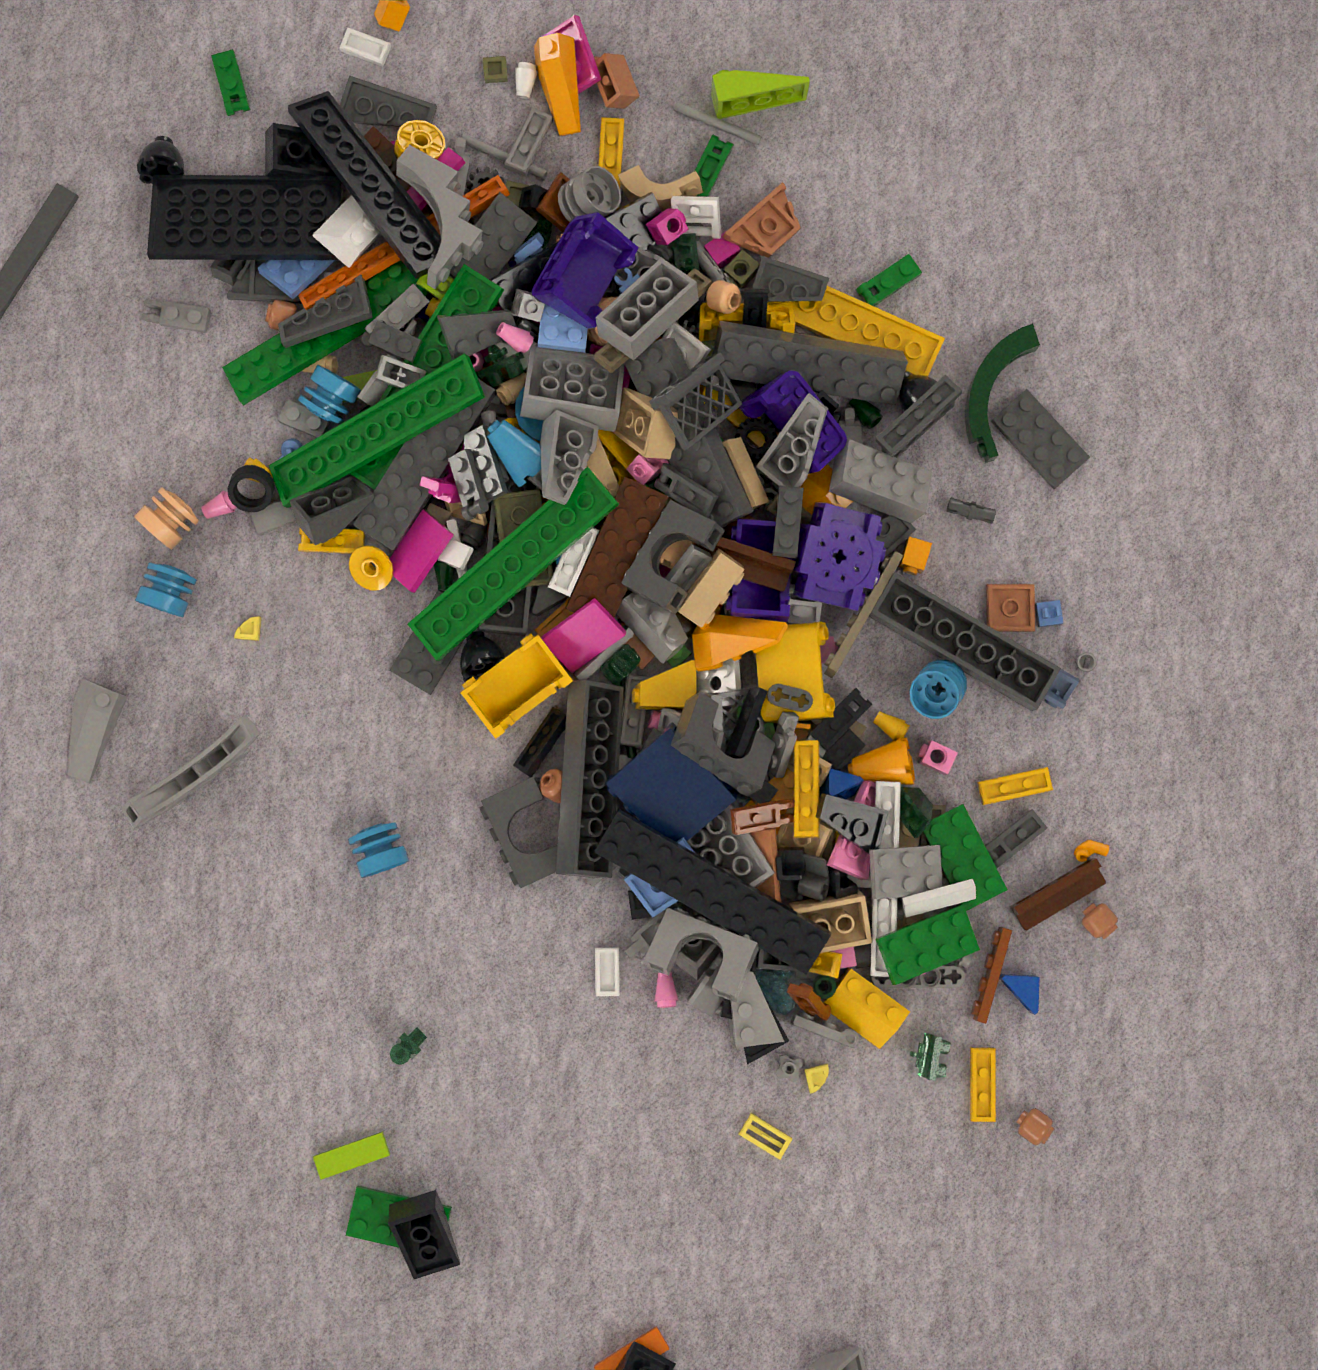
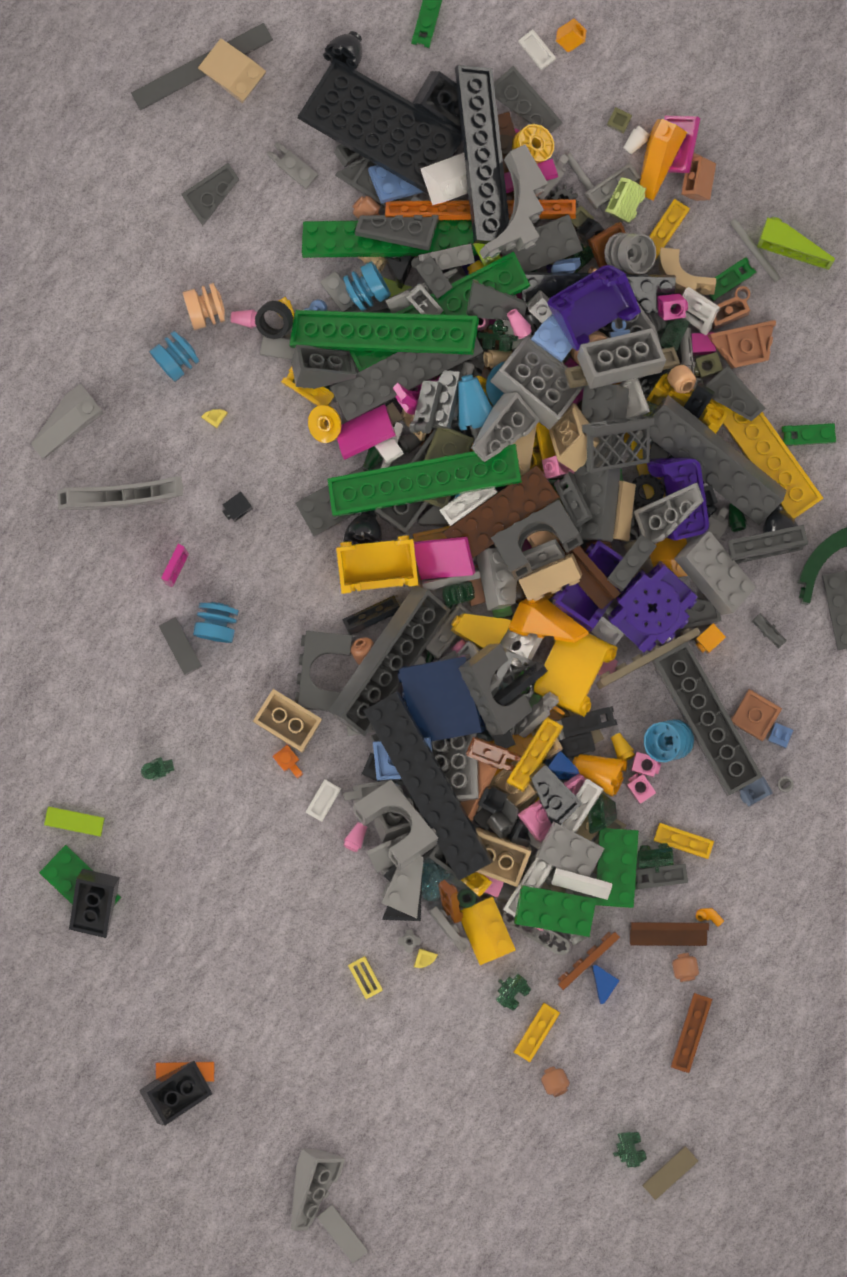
camera: 30 degrees right, 0 degrees up
(53, 251) = (232, 70): none -> tan slope
(104, 394) = (210, 192): none -> dark grey wing
(297, 814) = (175, 565): none -> dark pink tile
(329, 712) = (236, 507): none -> black brick
(355, 357) = (400, 269): none -> black slope
(355, 897) = (180, 646): none -> dark grey slope
(518, 910) = (287, 720): none -> tan slope
(543, 951) = (286, 759): none -> orange plate
(551, 146) = (626, 200): none -> yellowish green brick
(732, 194) = (732, 309): none -> nougat hinge
(788, 703) = (557, 688): dark grey beam -> none
(918, 734) = (637, 768): none -> bright pink brick
(998, 822) = (655, 857): none -> clear green hips
(1147, 986) = (691, 1033): none -> dark orange plate
(1154, 1154) = (627, 1150): none -> clear green hips
(1214, 1150) = (670, 1173): none -> dark tan tile

